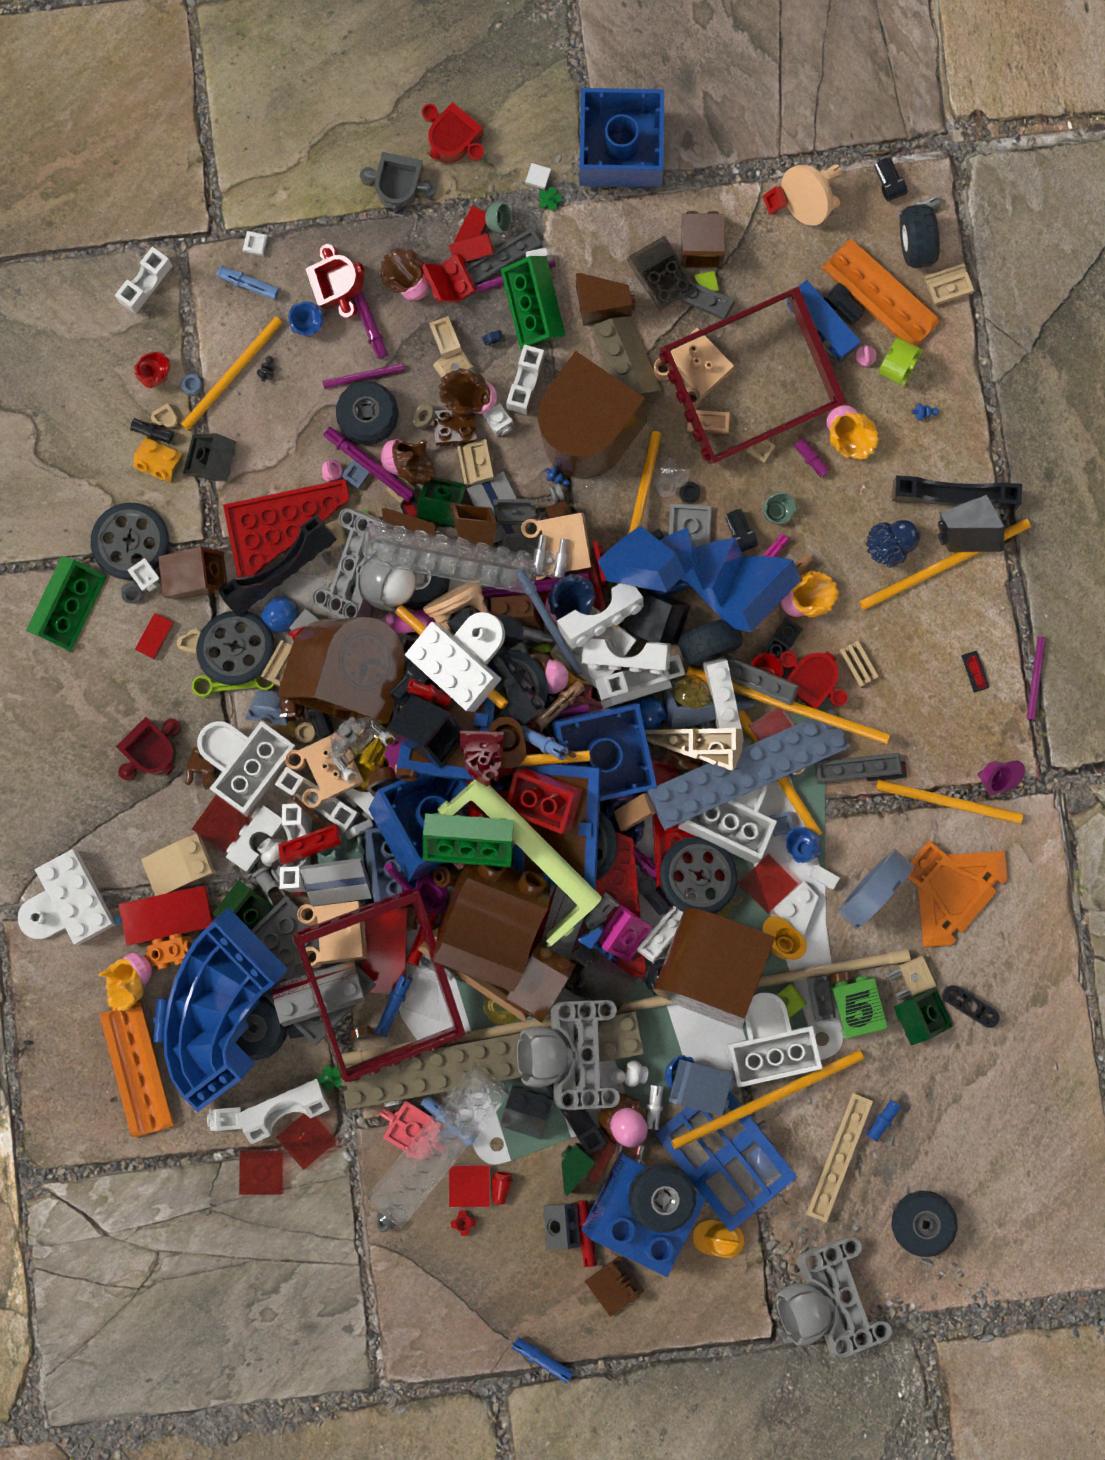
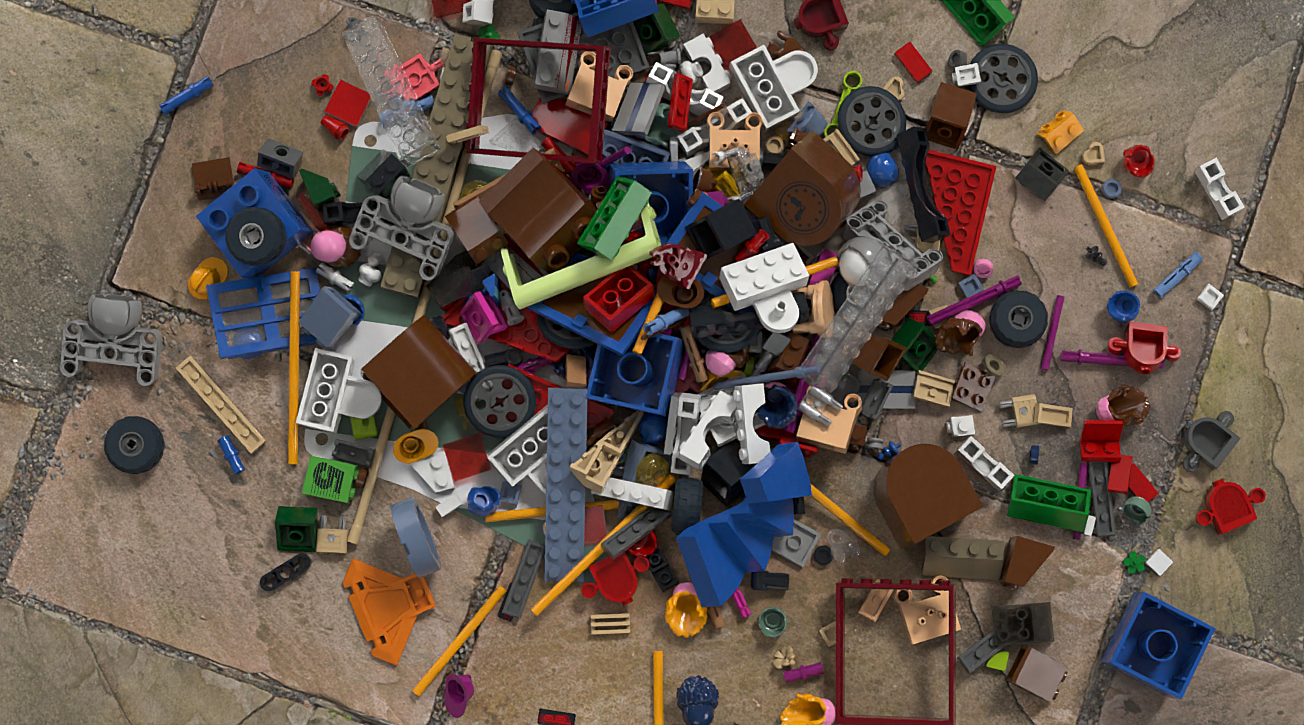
camera: 110 degrees right, 0 degrees up
(152, 430) = (1087, 138): black pin -> none
(447, 1040) = (467, 134): none -> tan tile
(467, 392) = (995, 408): reddish brown hair -> none
(807, 481) = (784, 658): none -> tan plant

